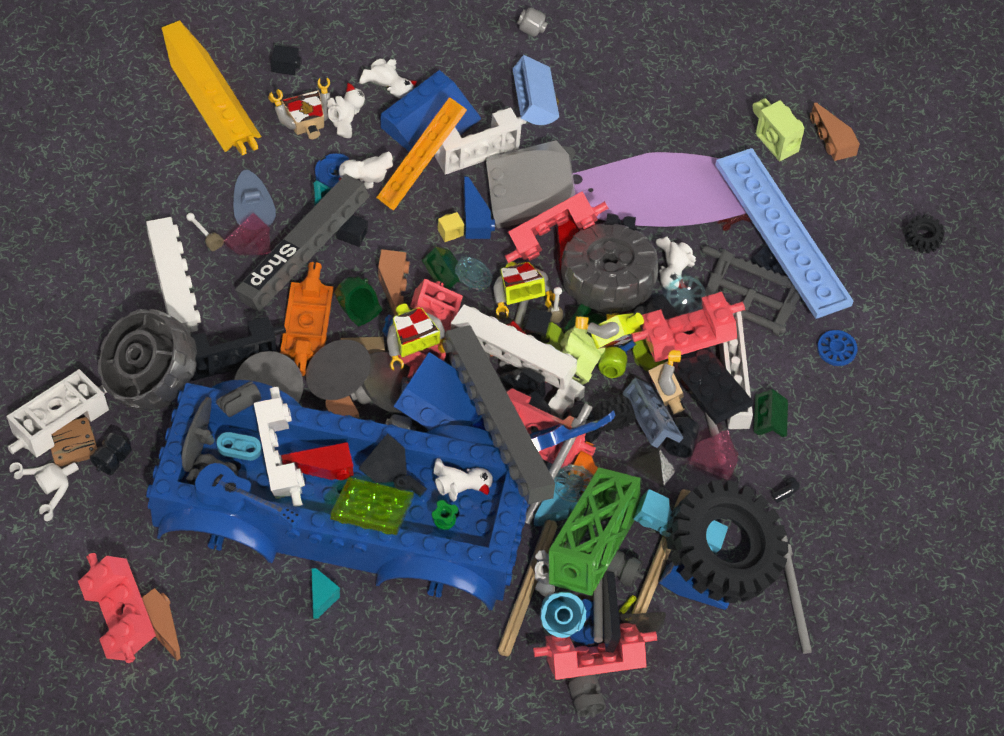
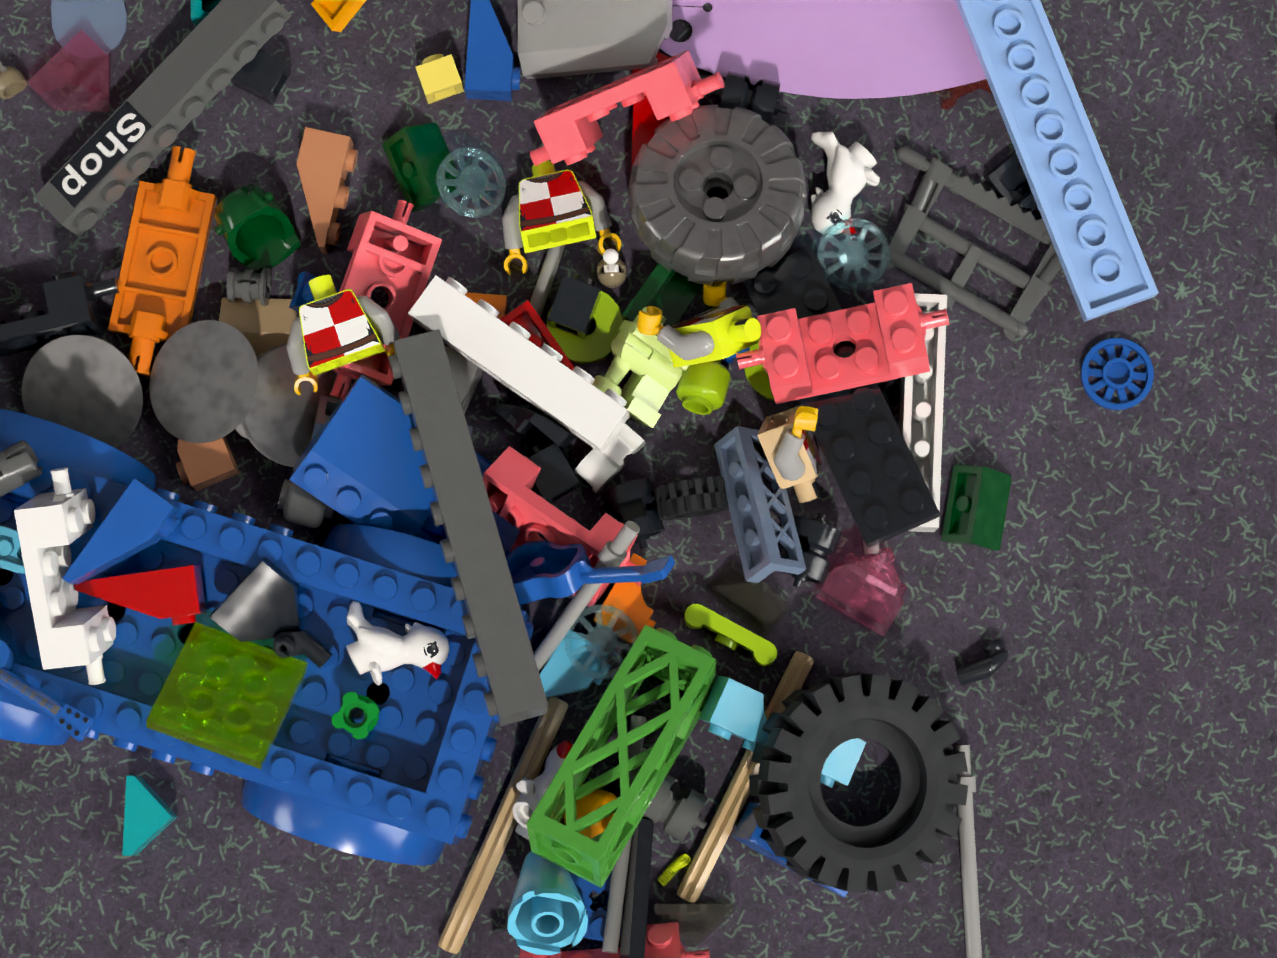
camera: 10 degrees right, 25 degrees up
(311, 423) = (130, 527): none -> blue slope
(356, 328) = (249, 285): none -> dark grey bush
(648, 480) = (731, 634): none -> lime plate

